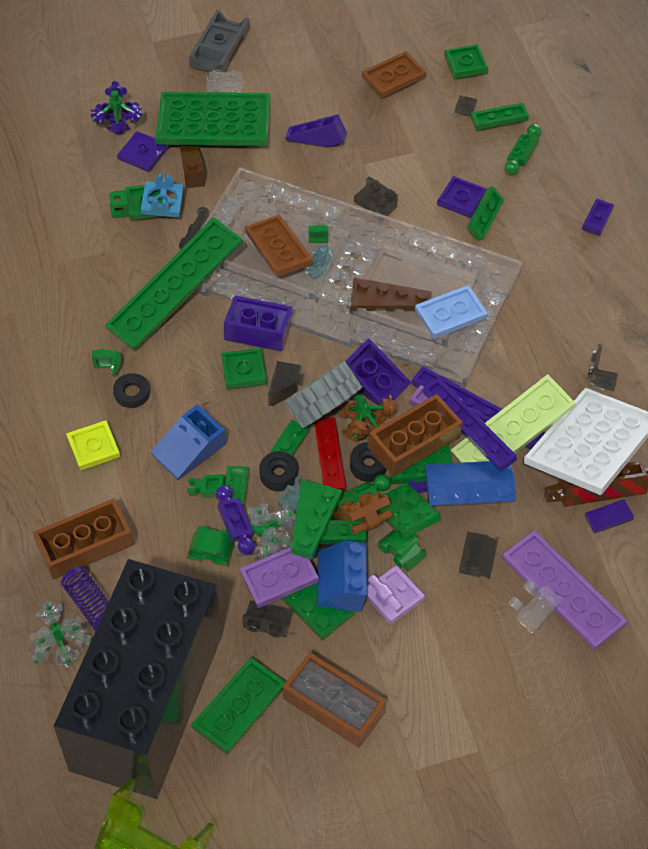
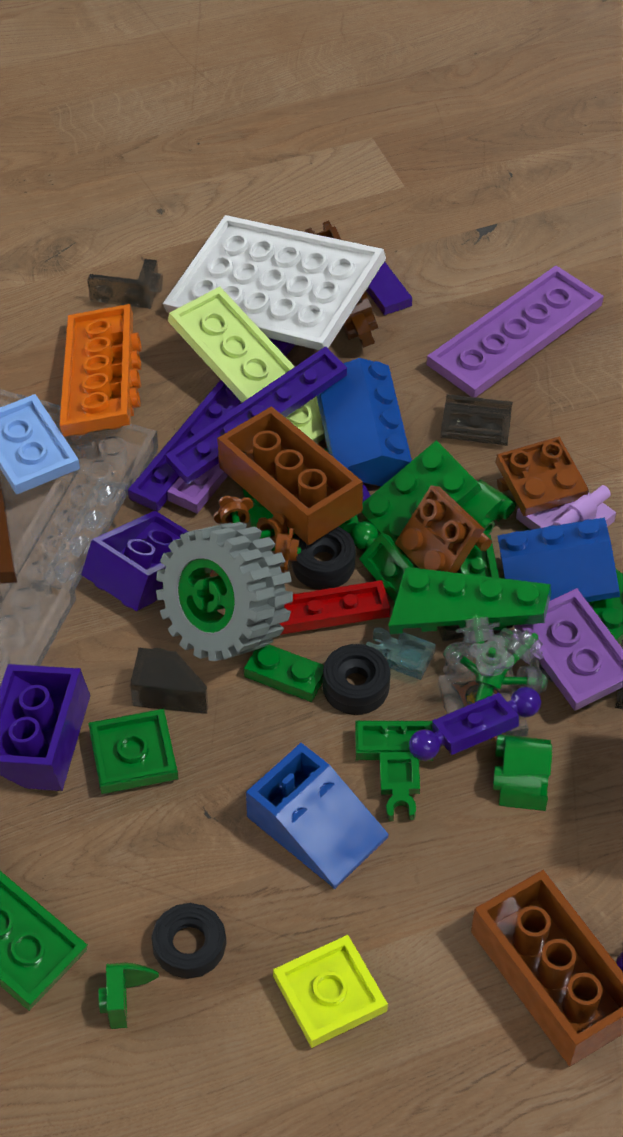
camera: 95 degrees left, 5 degrees down
(418, 578) = (540, 476): none -> dark orange plate
(515, 349) = (100, 371): none -> orange plate
(538, 609) = (560, 349): clear plate -> none

